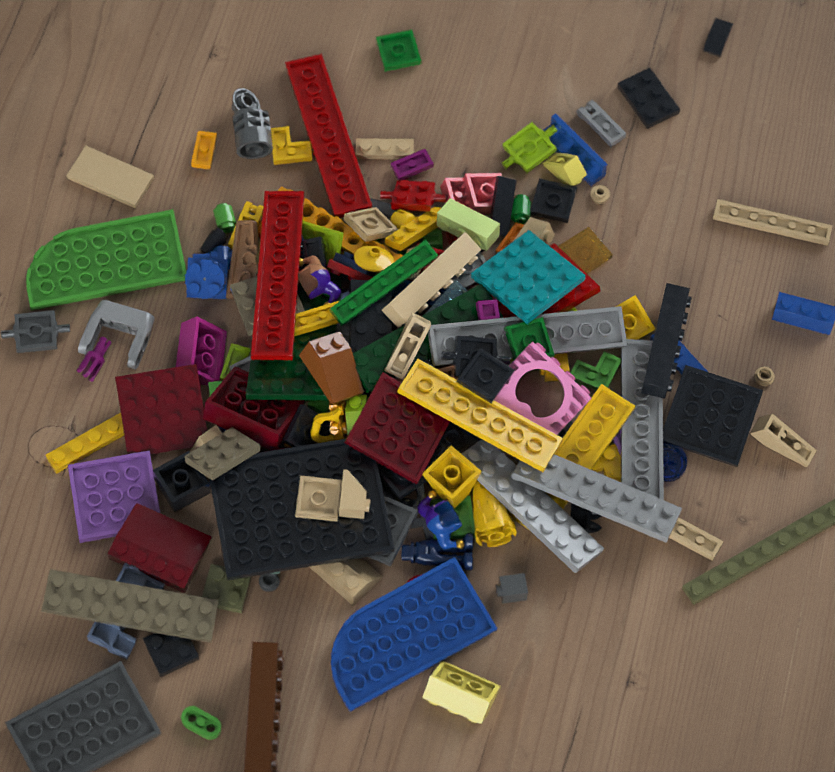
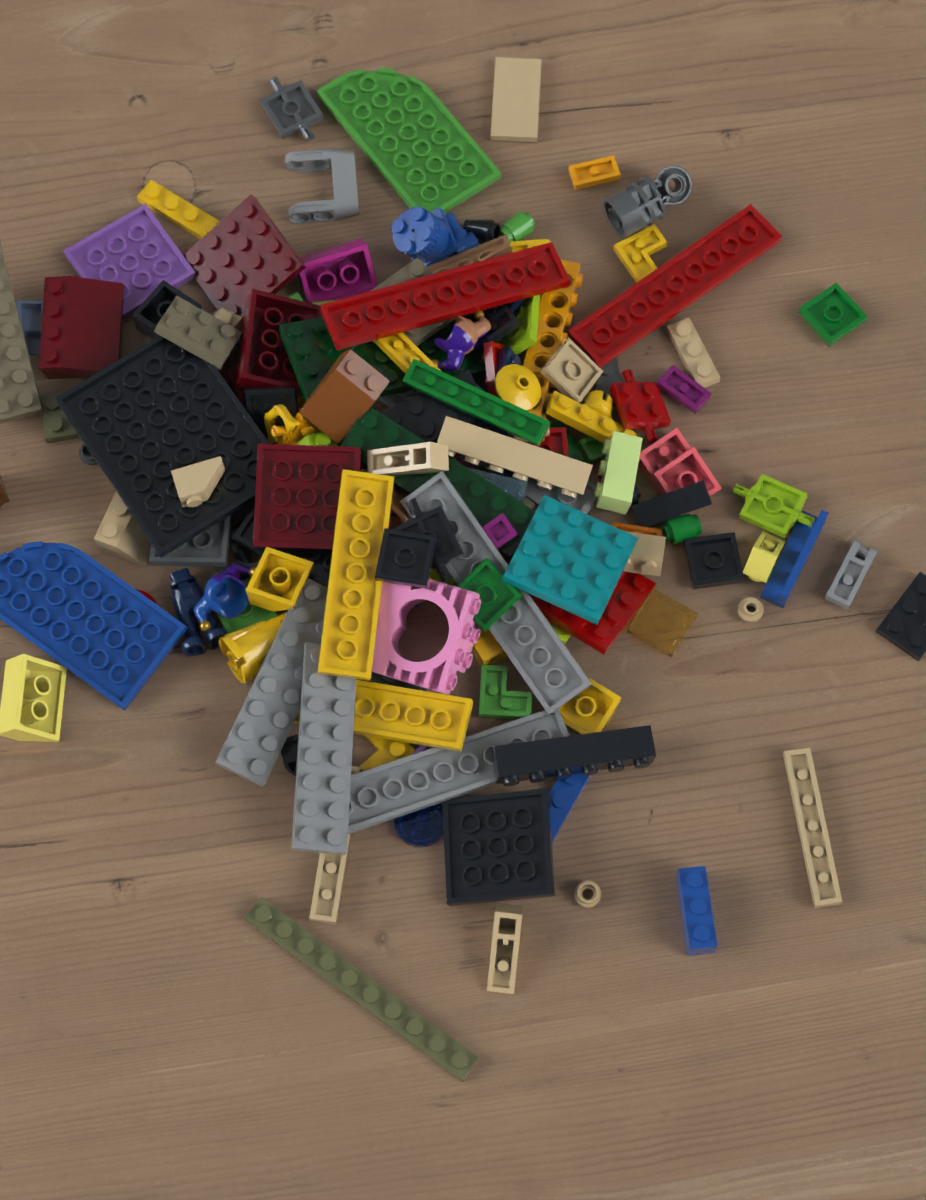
camera: 70 degrees right, 5 degrees up
(94, 359) = (286, 176): magenta arm -> none
(318, 498) = (183, 446): tan tile -> none
(512, 588) = (179, 706): dark grey brick -> none

